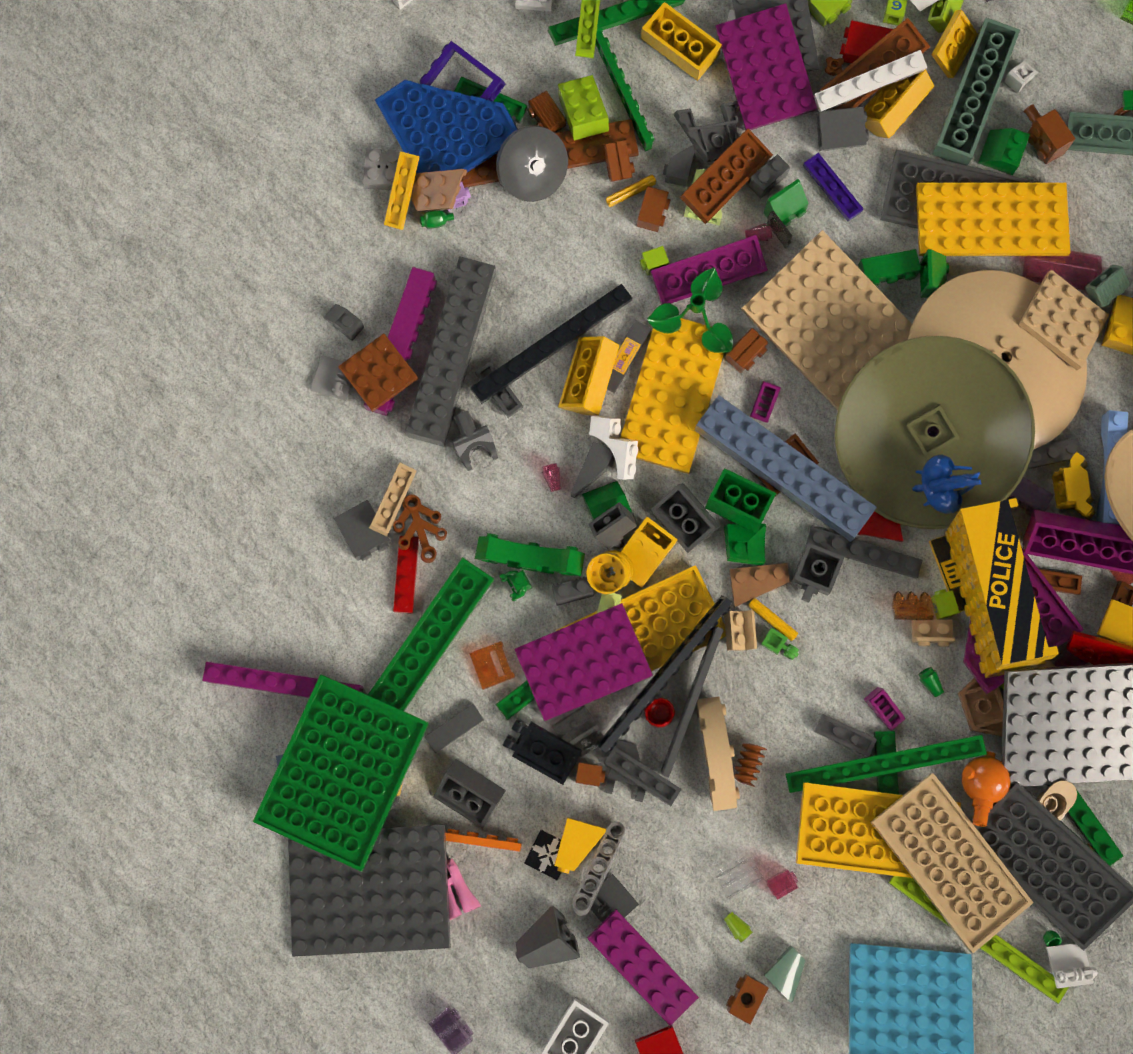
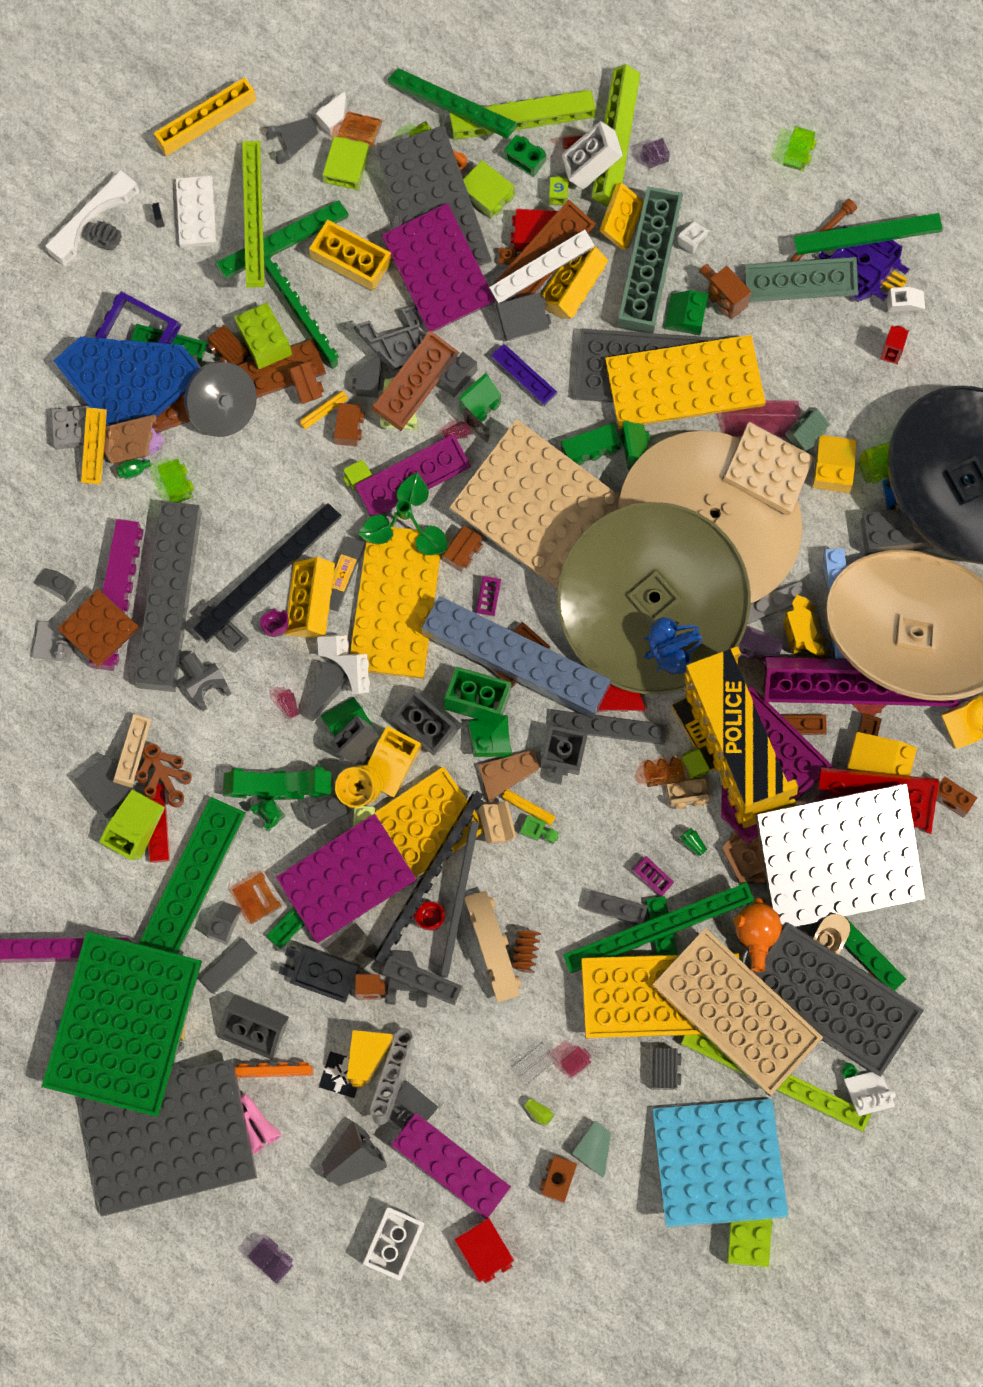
camera: 10 degrees left, 5 degrees down
(381, 574) = (132, 826): none -> lime slope
(457, 684) = (224, 923): none -> dark grey slope
(475, 238) = (175, 481): none -> clear neon green brick
(551, 394) = (274, 623): none -> magenta hair
(870, 906) = (666, 1069): none -> dark grey brick

